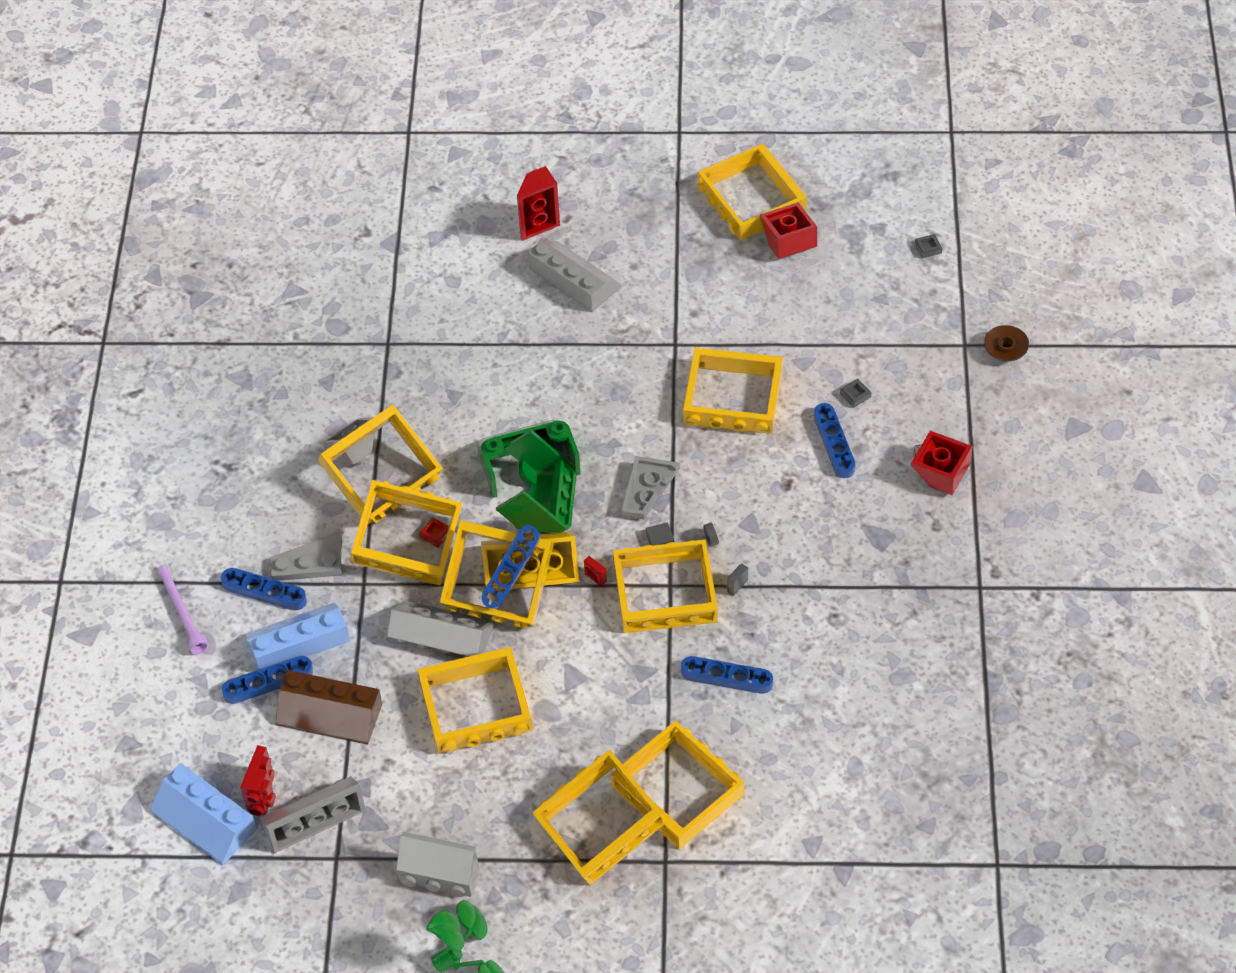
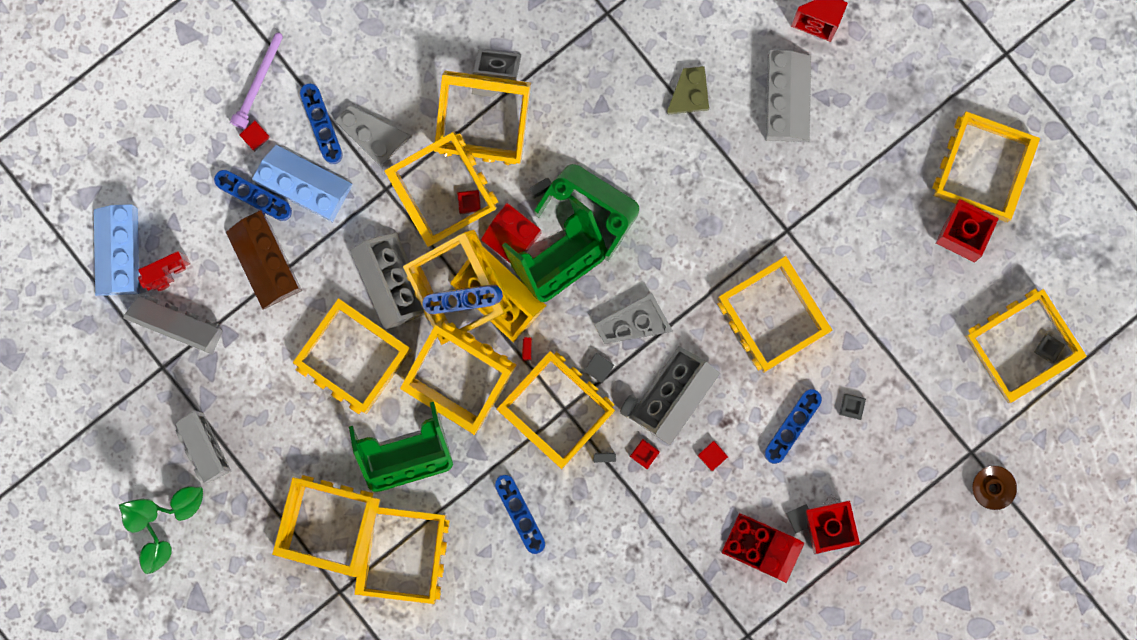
camera: 55 degrees right, 30 degrees up
(221, 643) = (254, 136): none -> red tile
(476, 472) = (540, 188): none -> dark grey tile
(482, 511) = (513, 229): none -> red slope
(505, 331) = (690, 92): none -> olive wing
(577, 663) = (444, 405): none -> yellow window
(604, 717) = (404, 459): none -> green windscreen
(732, 497) = (674, 395): none -> light grey slope
(760, 554) = (644, 454): none -> red tile
(807, 508) = (712, 456): none -> red tile
(913, 485) = (798, 518): none -> dark grey tile
(915, 222) = (1014, 307): none -> yellow window
(915, 522) = (763, 547): none -> red slope

